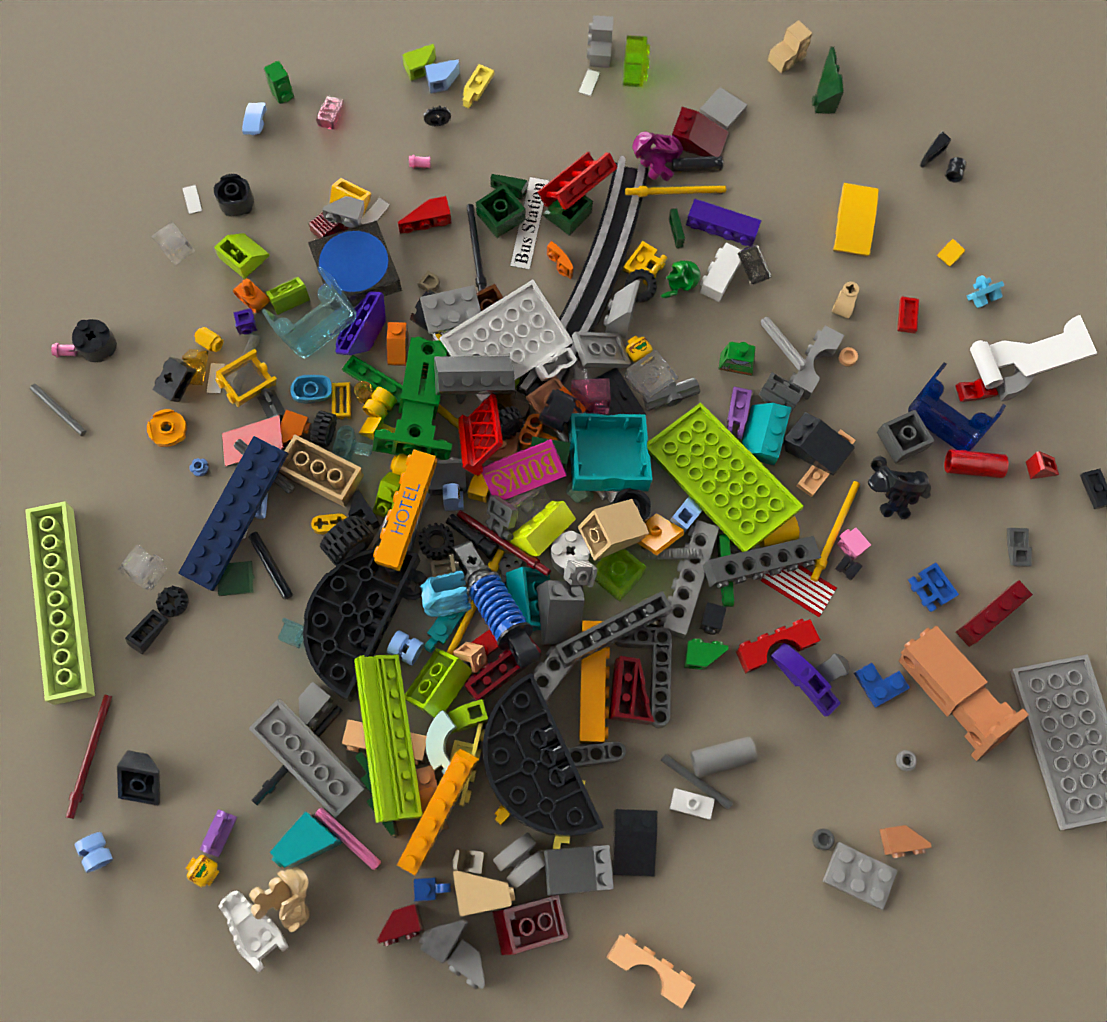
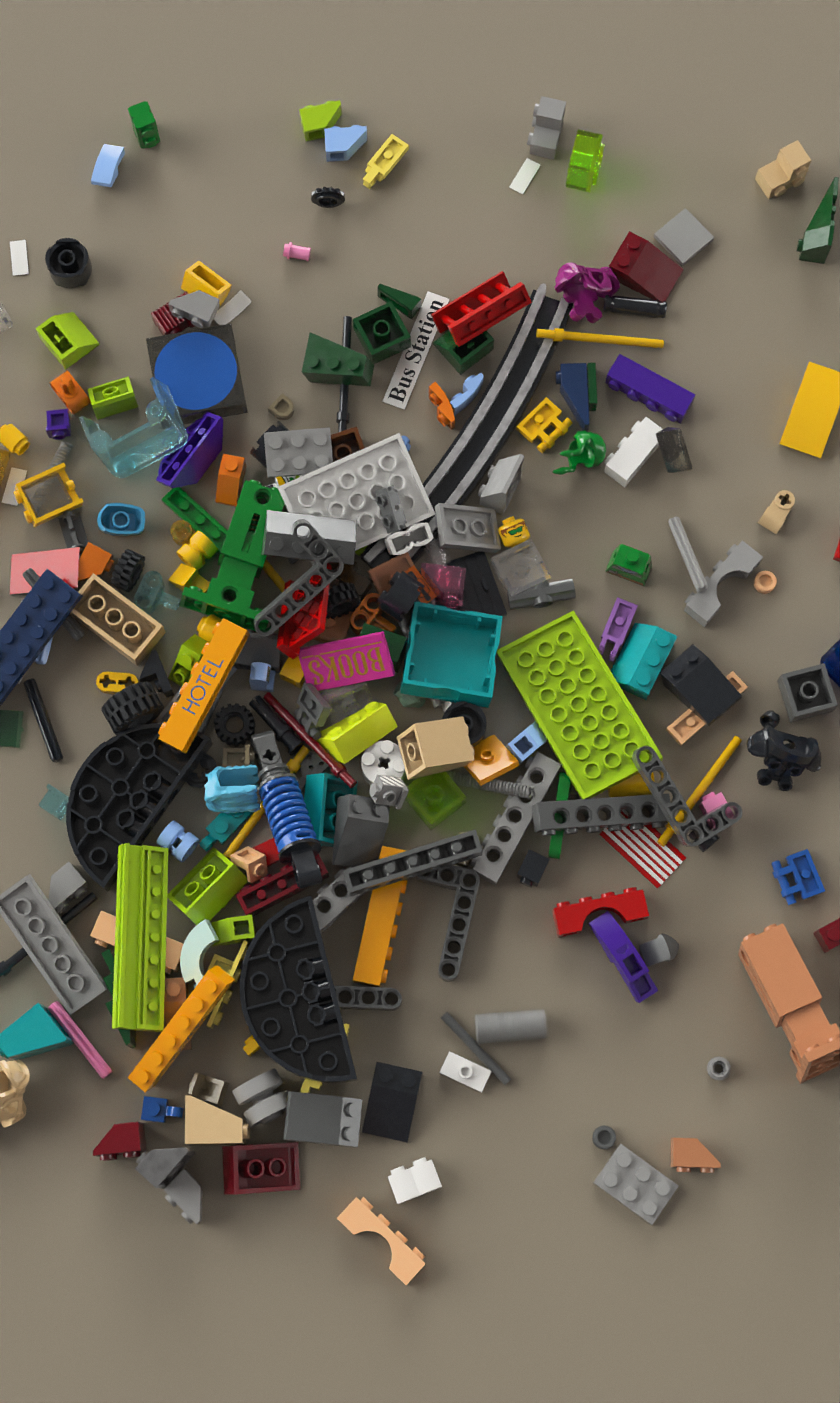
camera: 15 degrees right, 5 degrees up
(325, 122) = (193, 183): clear pink slope -> none
(342, 415) = (151, 556): yellow tile -> none
(429, 214) = (292, 324): red slope -> none
(468, 239) = (335, 364): none -> dark green wedge
(476, 409) = (302, 583): none -> dark grey beam
(533, 334) = (392, 519): none -> dark grey hinge
(580, 244) = (470, 390): none -> light blue slope
(628, 693) = (418, 938): dark red wedge -> none
(649, 278) = (542, 445): black tyre -> none
(664, 233) = (574, 390): none -> dark blue slope
(668, 910) = (414, 1180): none -> white brick
(701, 654) = (510, 908): green slope -> none
(780, 391) = (671, 614): dark grey brick -> none
(826, 541) = (678, 802): none -> dark grey beam
(880, 689) = (710, 984): blue plate -> none

